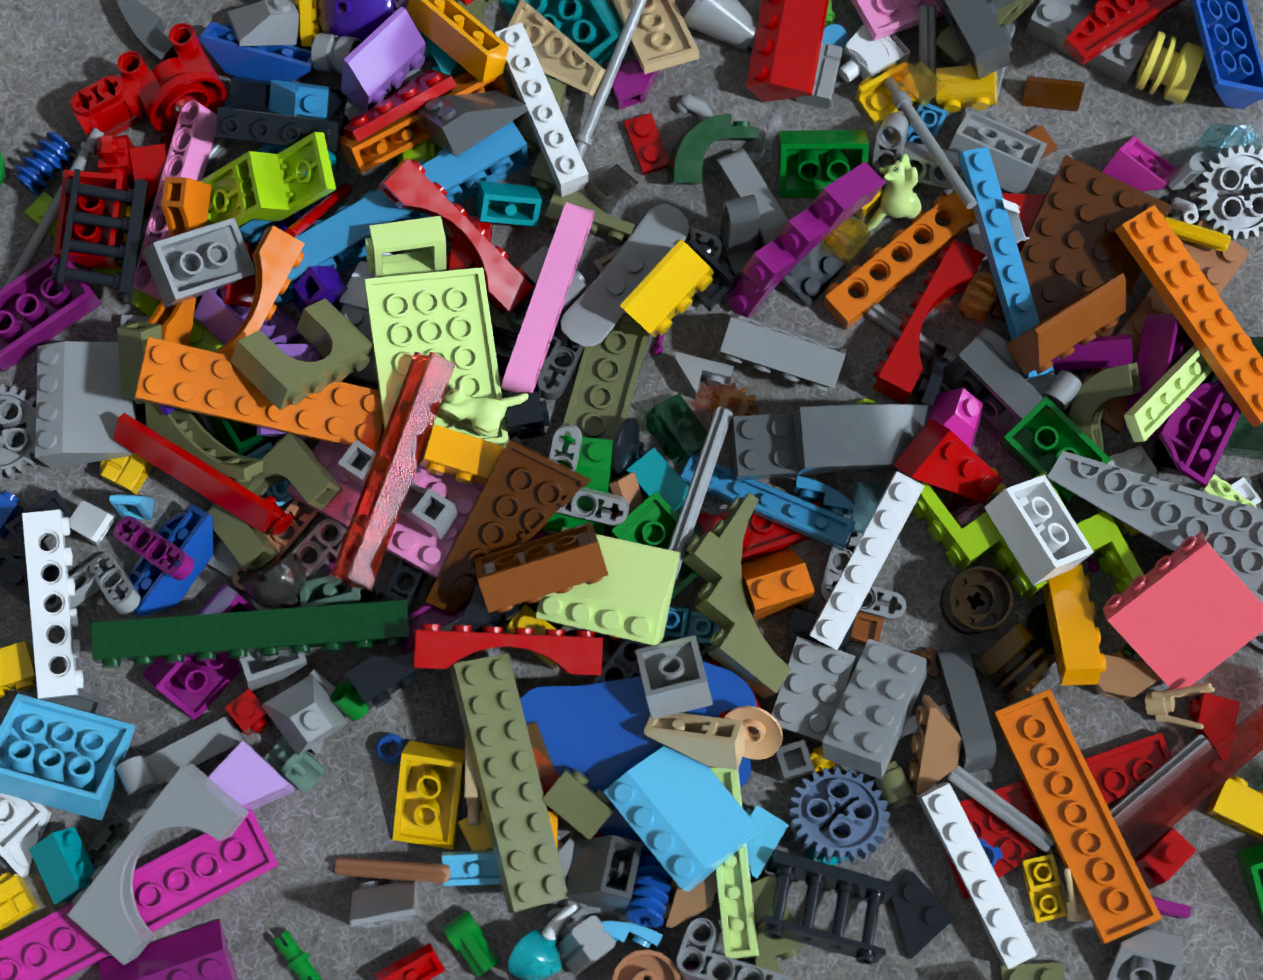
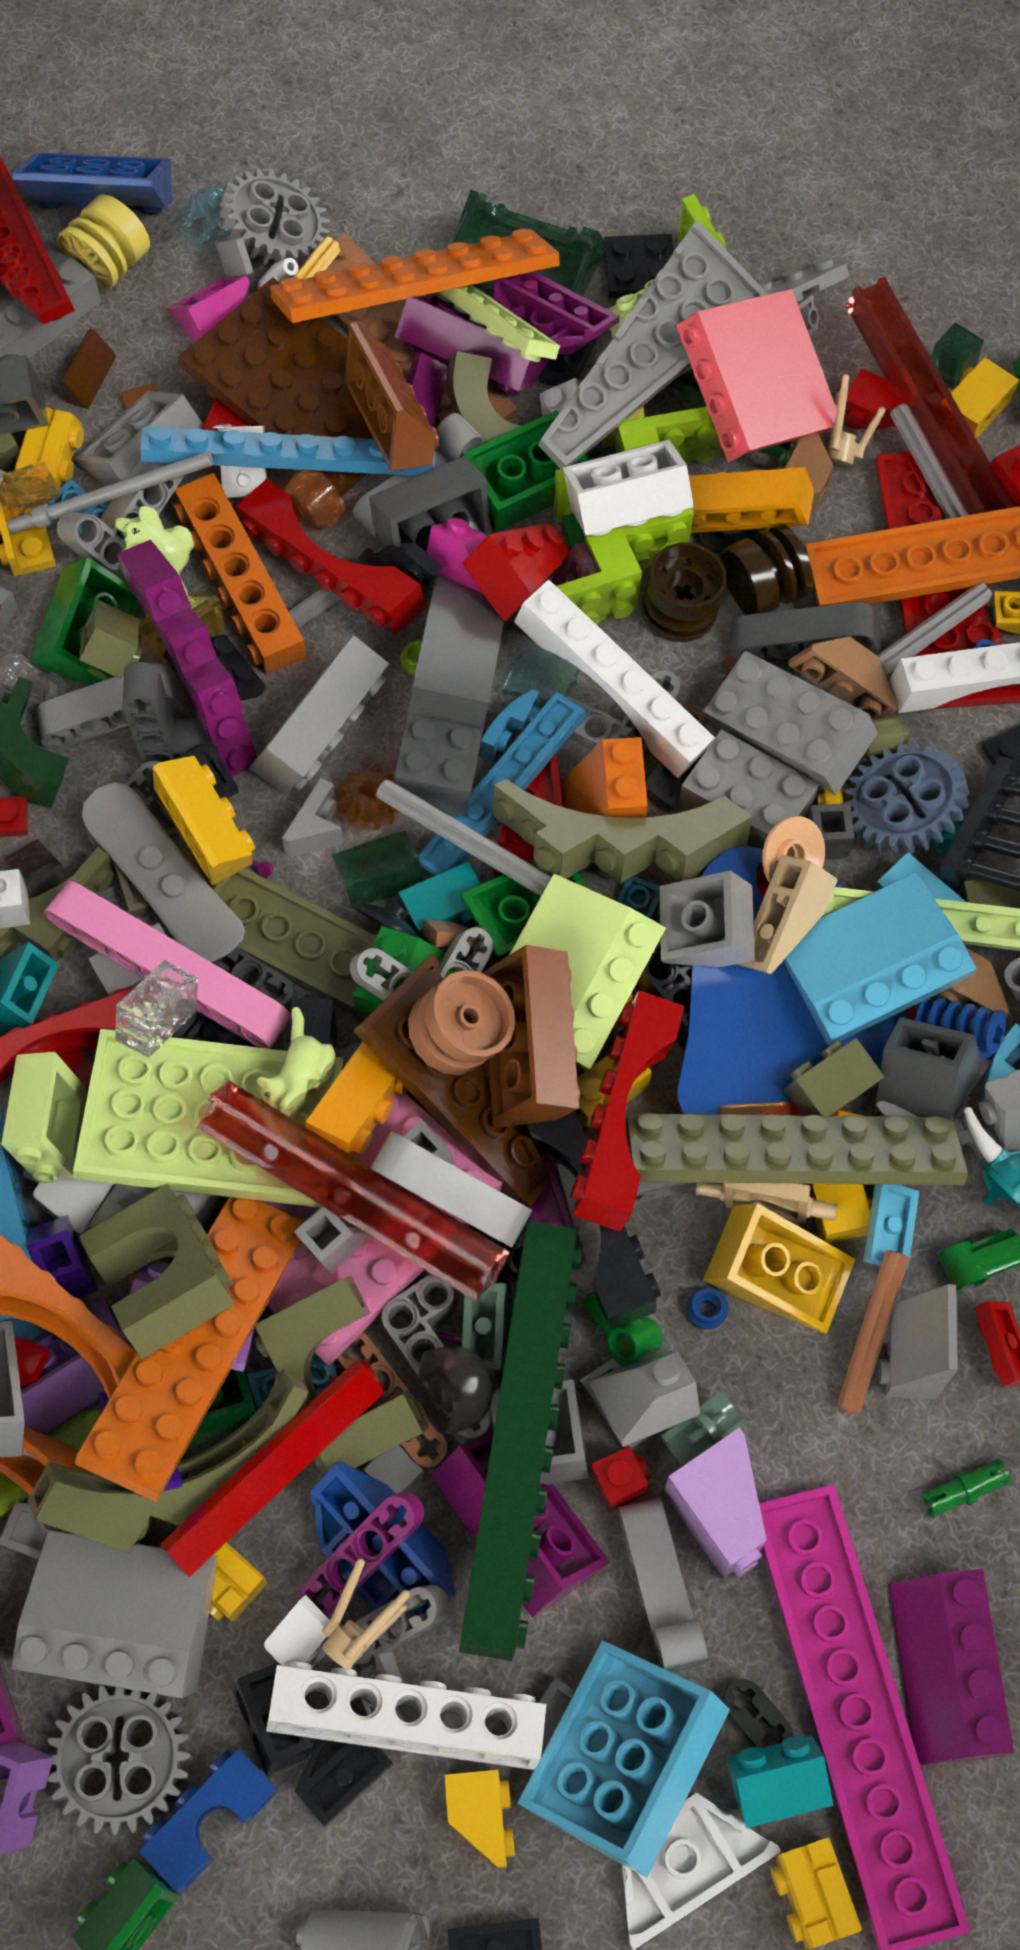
camera: 75 degrees left, 10 degrees down
(87, 553) = (350, 1641): none -> tan plant
(108, 905) = (853, 1721): light grey arch -> none
(131, 505) = (286, 1579): medium azure slope -> none
(405, 540) = (451, 1189): none -> beam
(501, 299) = (156, 1008): none -> clear brick
(545, 524) = (461, 1022): none -> nougat wheel
(797, 180) = (110, 639): none -> olive brick

